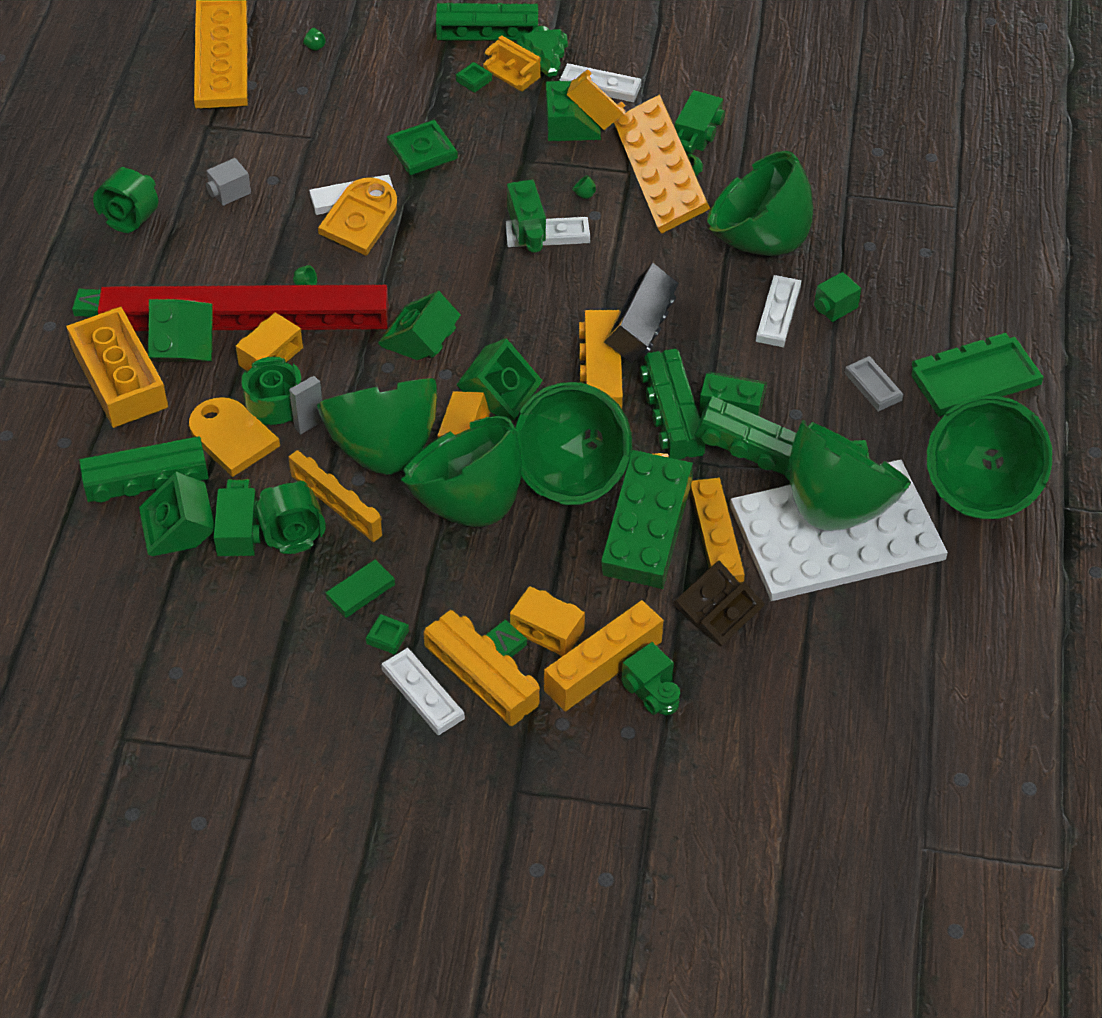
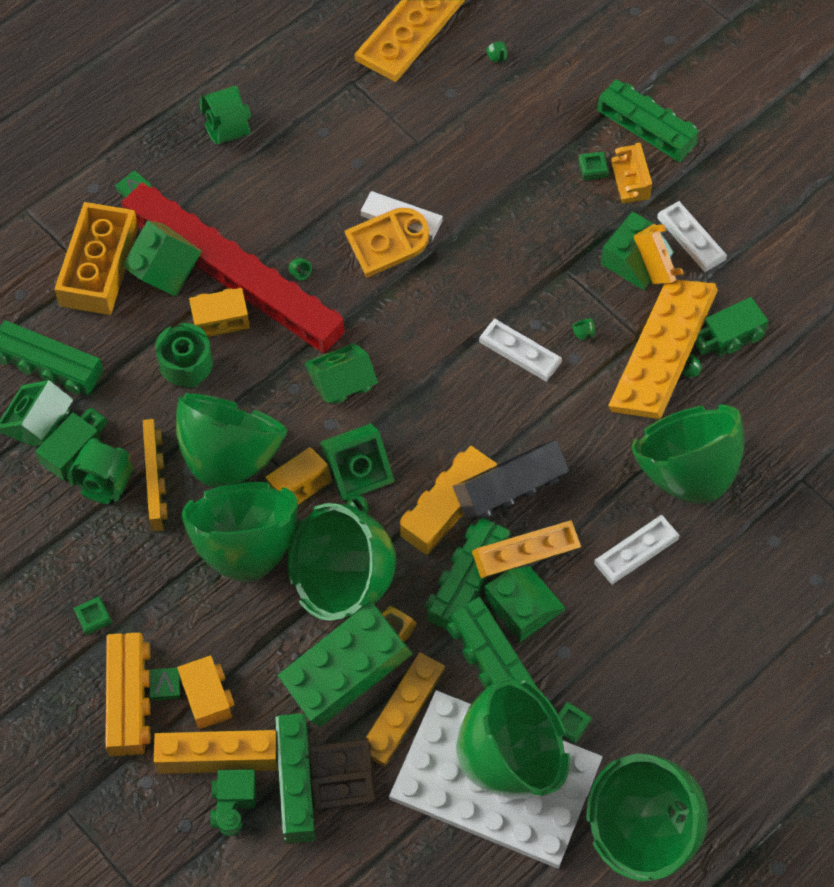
camera: 40 degrees right, 10 degrees up
(228, 181) = (316, 145): light grey brick -> none
(233, 436) = (132, 372): light orange tile -> none
(304, 404) = (192, 380): light grey tile -> none
(360, 588) = (106, 564): green tile -> none
(422, 147) = (493, 206): green tile -> none
(423, 691) = (75, 680): white tile -> none
(526, 214) = (505, 327): green brick -> none
(547, 45) = (672, 175): green rock -> none
(692, 631) = (295, 778): none -> green brick
(702, 353) = (526, 549): none -> light orange plate
(837, 296) = (691, 571): green brick -> none
(873, 383) = (650, 671): light grey tile -> none
(974, 371) = (744, 725): green hinge -> none

